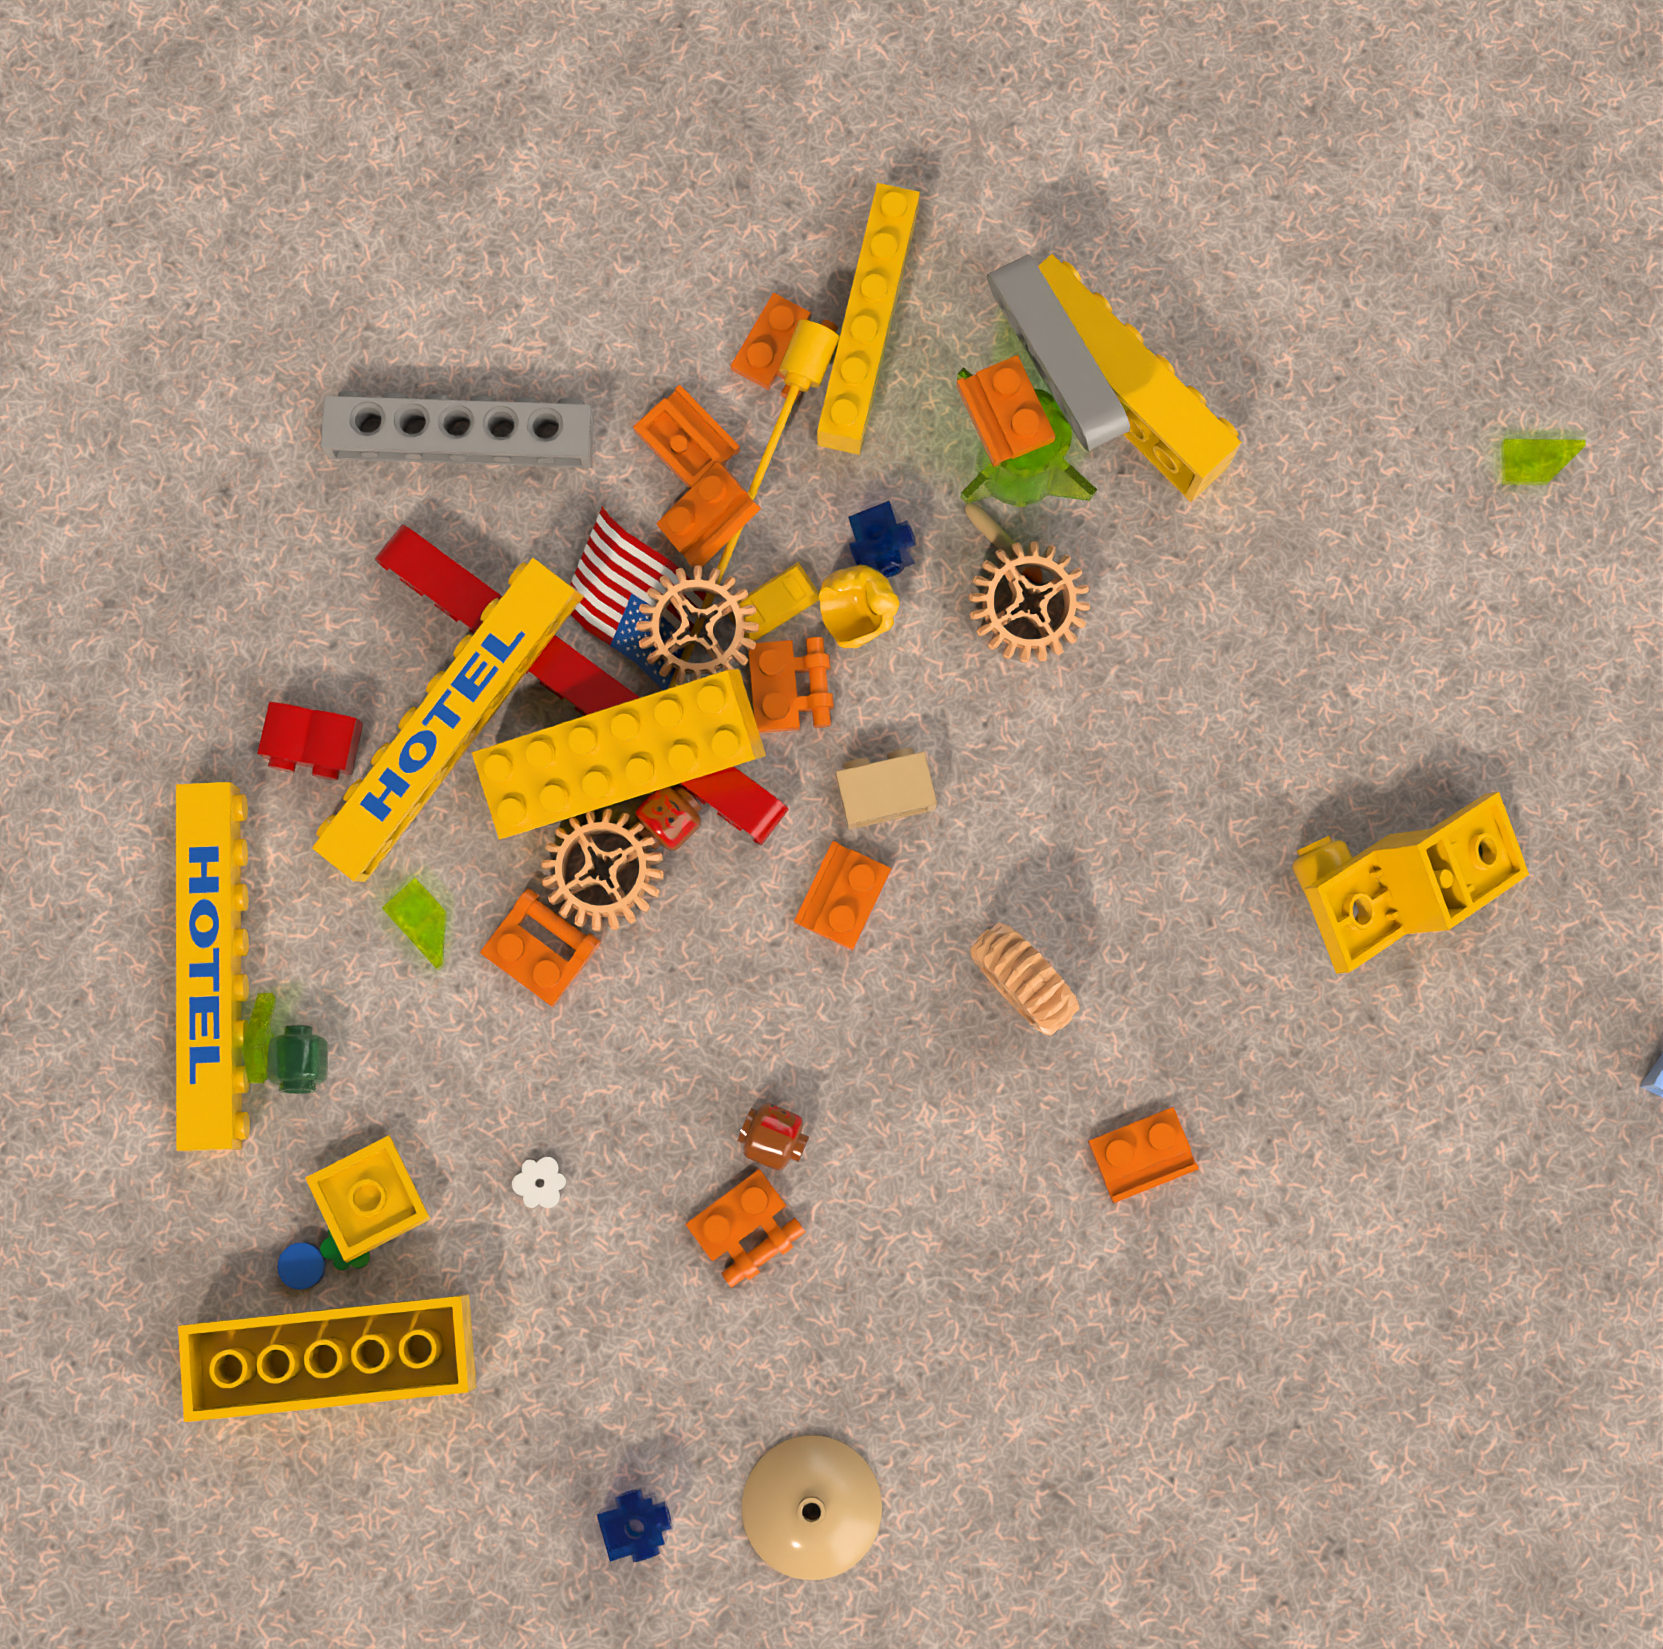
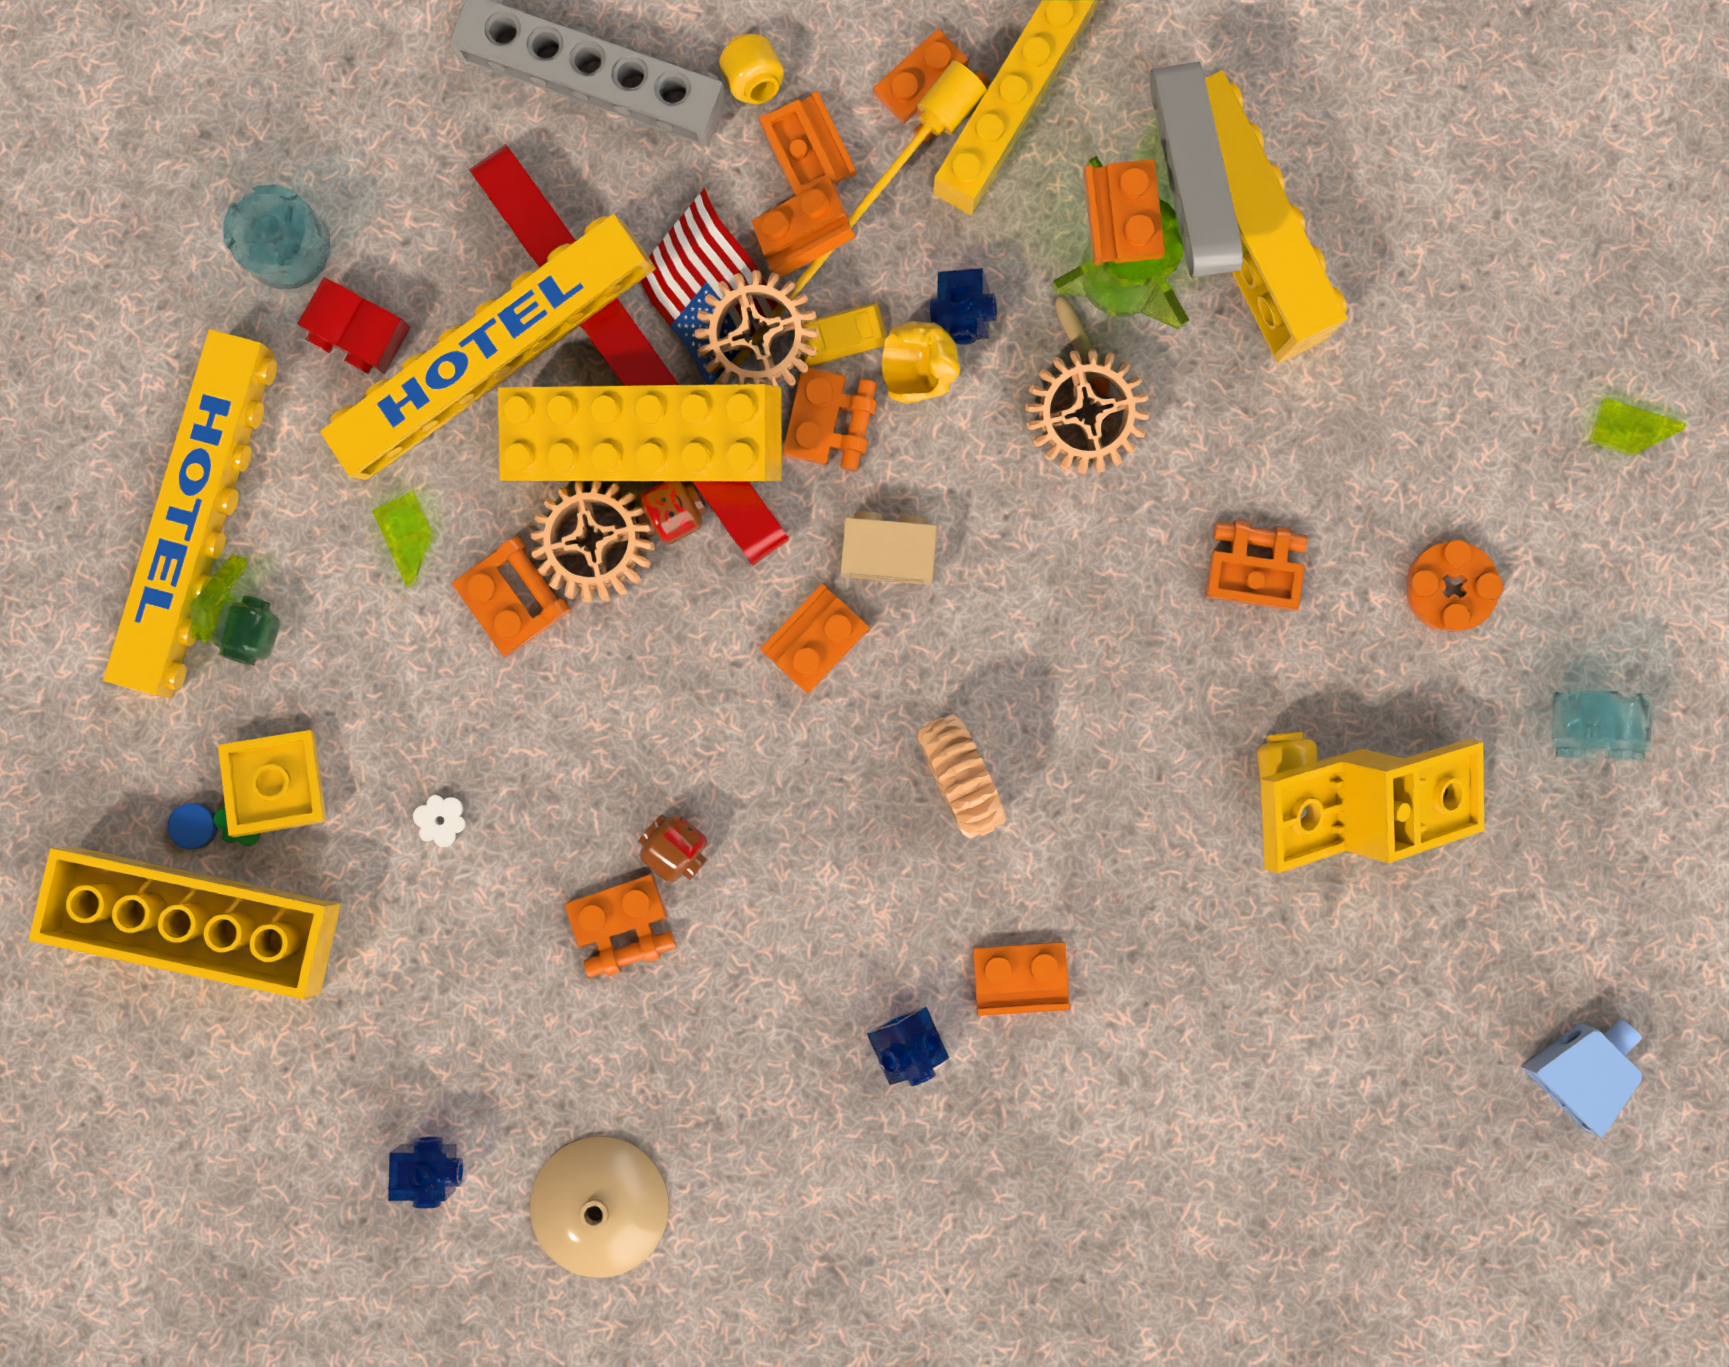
camera: 20 degrees right, 5 degrees up
(194, 664) = (282, 216): none -> clear light blue brick
(611, 383) = (751, 68): none -> yellow head
(1059, 1253) = (908, 1047): none -> clear blue brick
(1238, 708) = (1256, 579): none -> orange plate
(1419, 631) = (1479, 584): none -> orange plate
(1602, 739) = (1601, 723): none -> clear light blue brick

